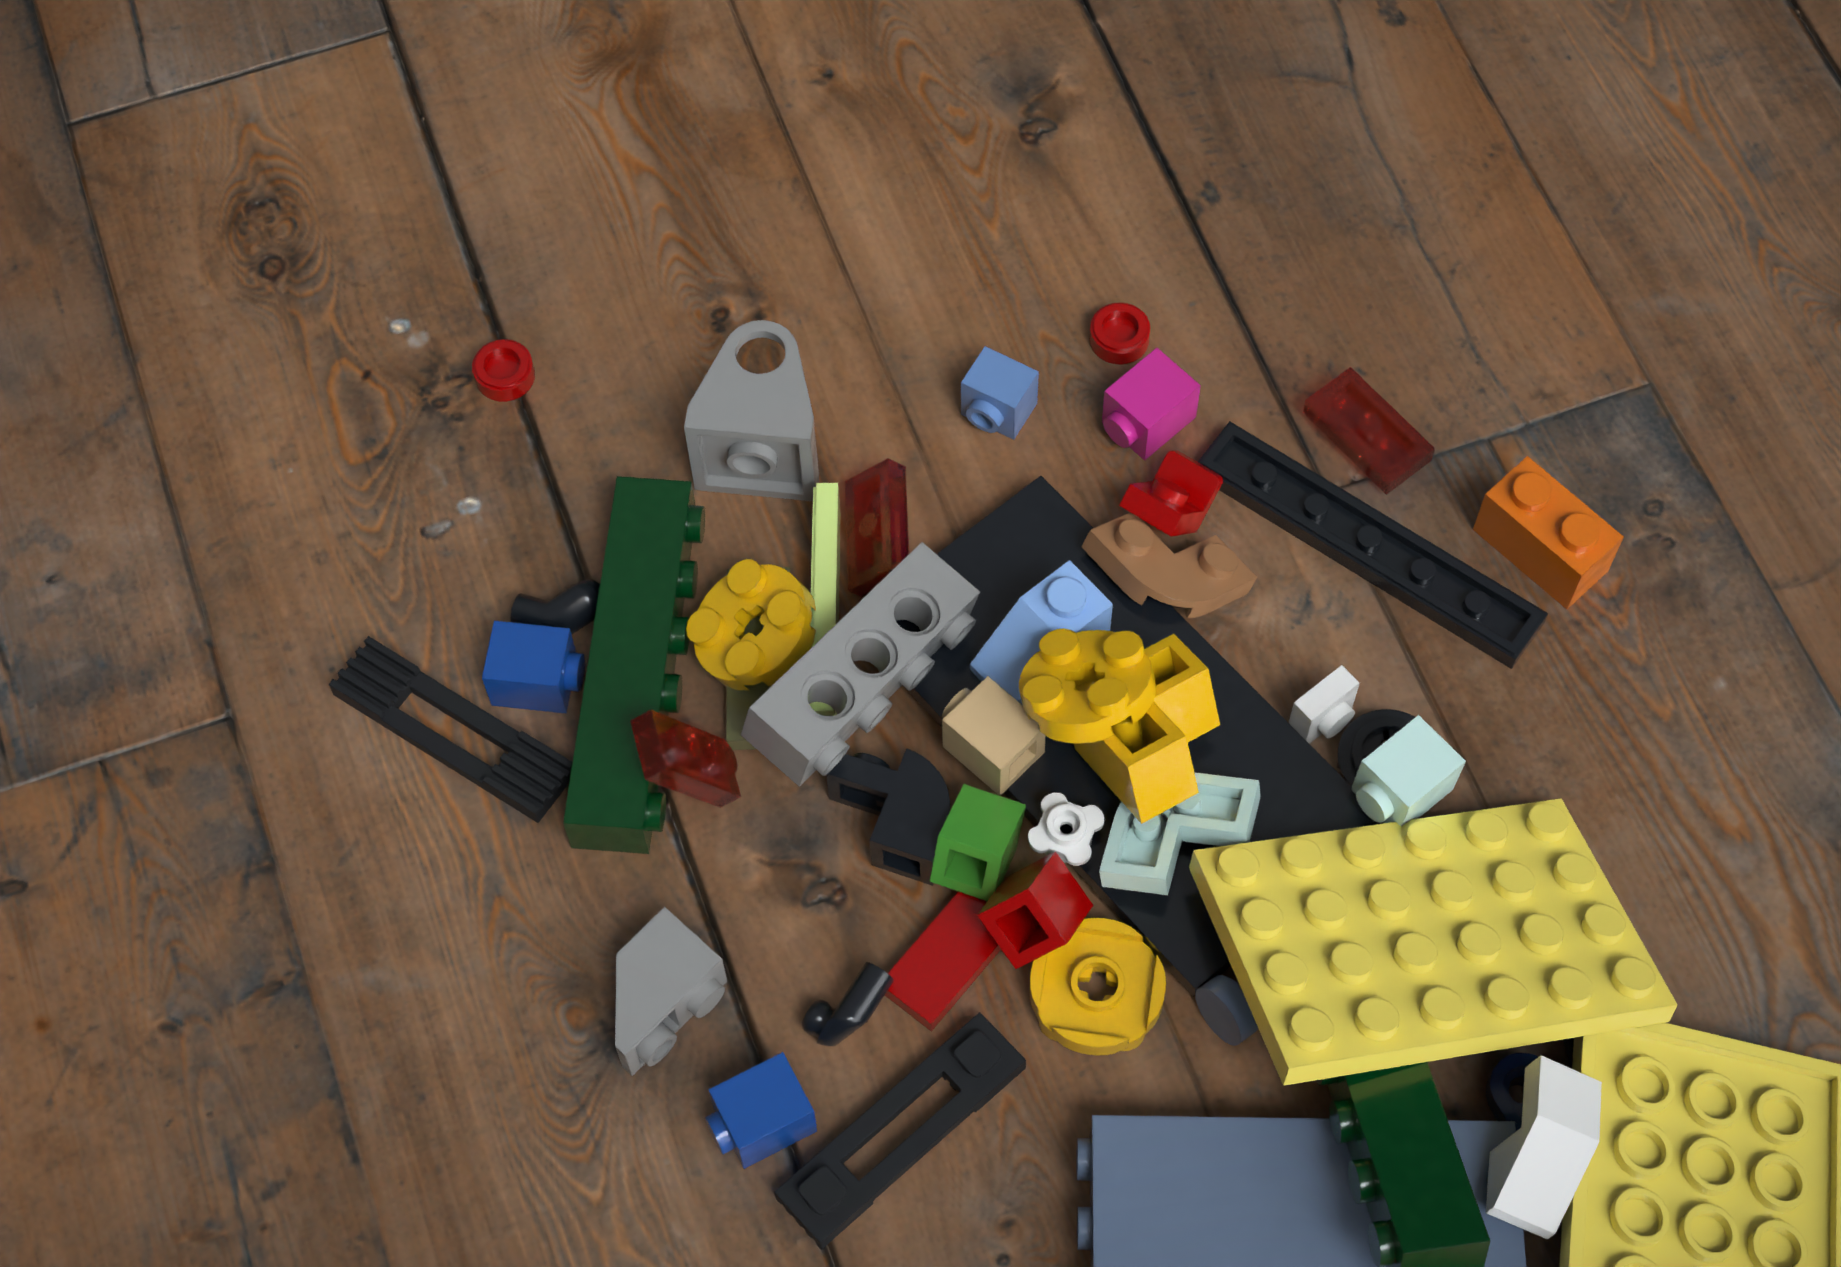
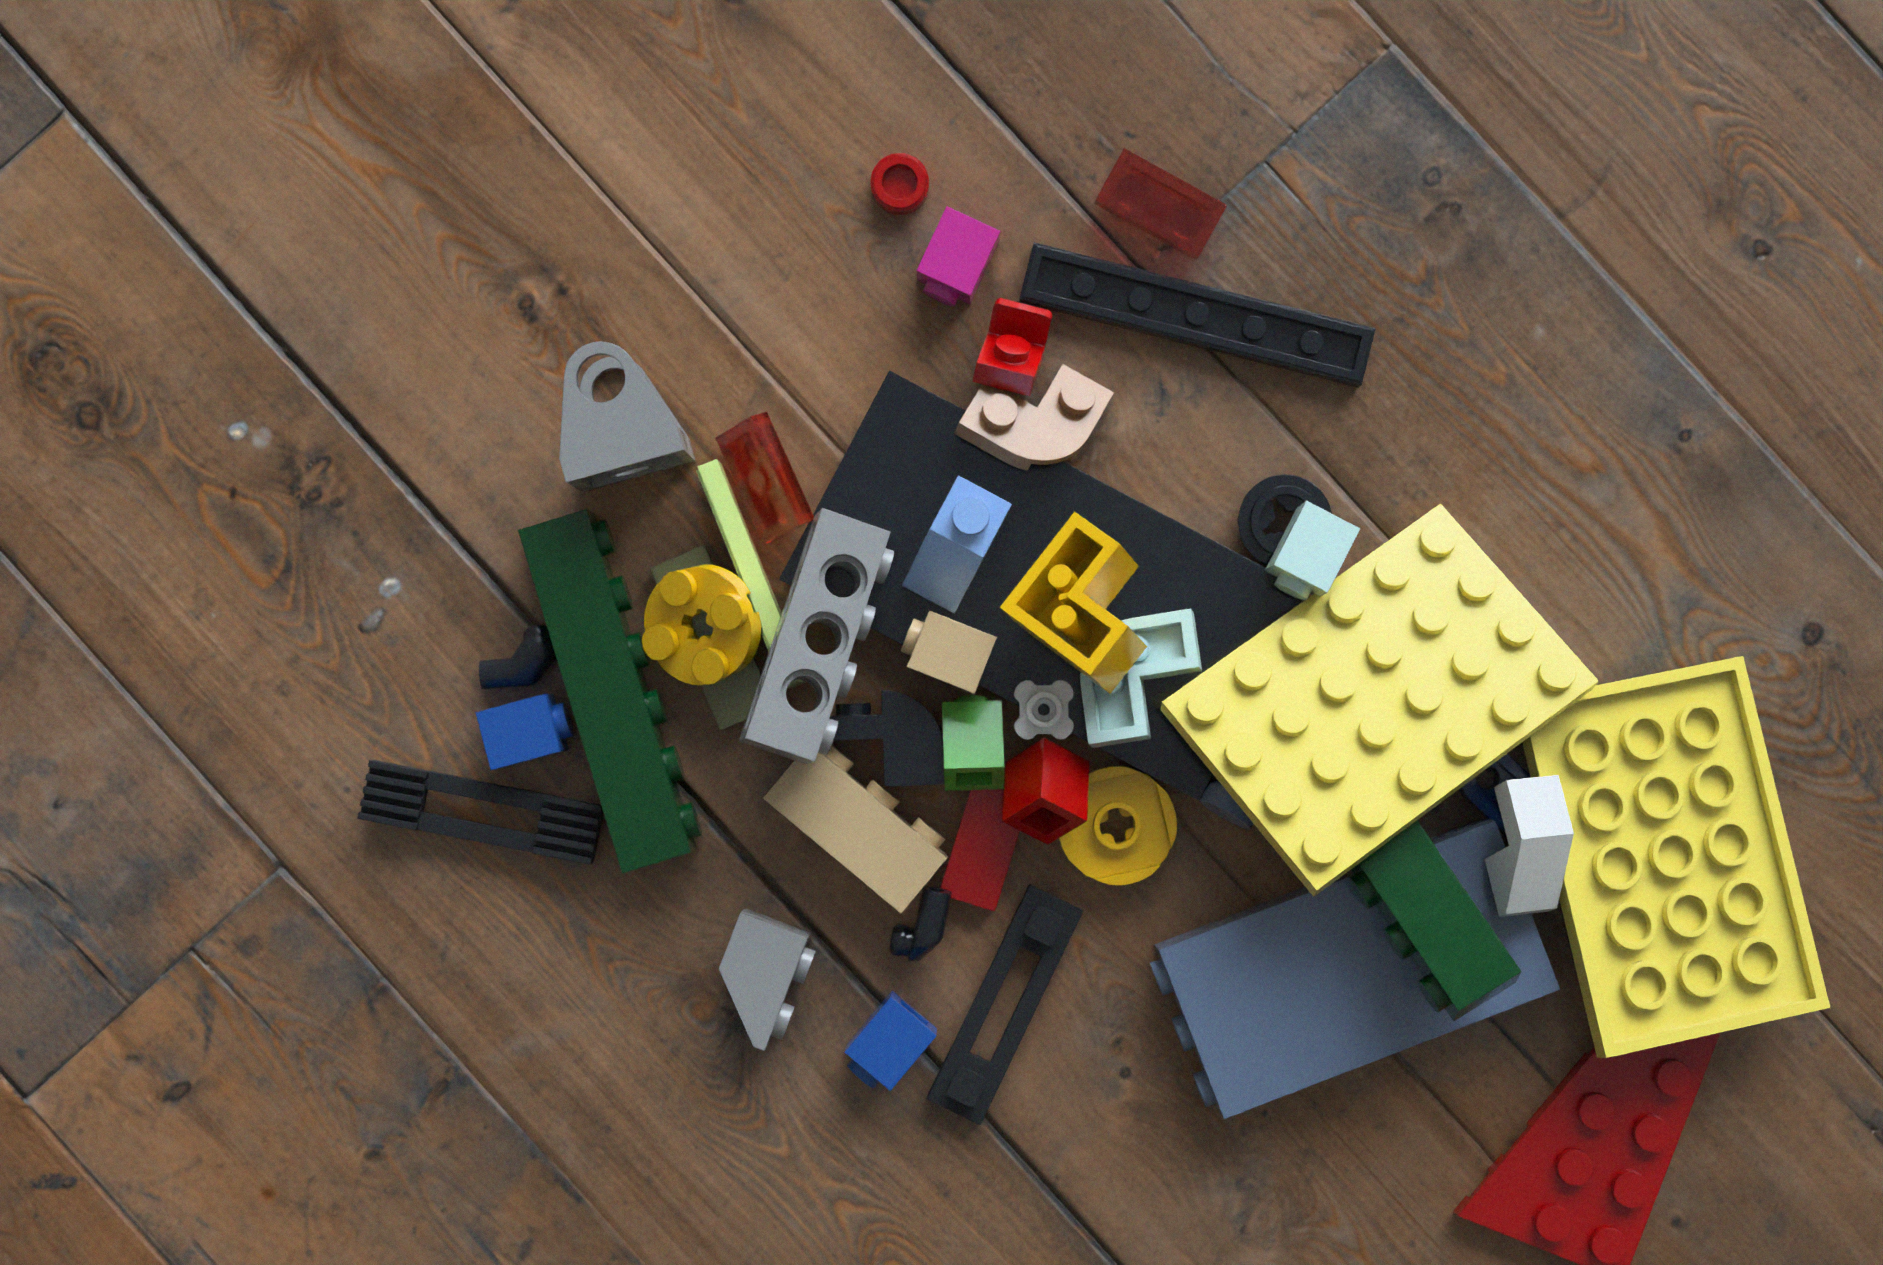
camera: 20 degrees left, 25 degrees up
(503, 370) = (357, 443): red tile -> none
(686, 759) = (698, 774): clear red plate -> none
(825, 880) = (859, 826): none -> tan brick
(999, 393) = (817, 300): medium blue plate -> none
(1066, 659) = (1048, 617): yellow plate -> none
(1325, 706) = (1218, 500): white plate -> none
(1547, 532) = (1353, 253): orange brick -> none

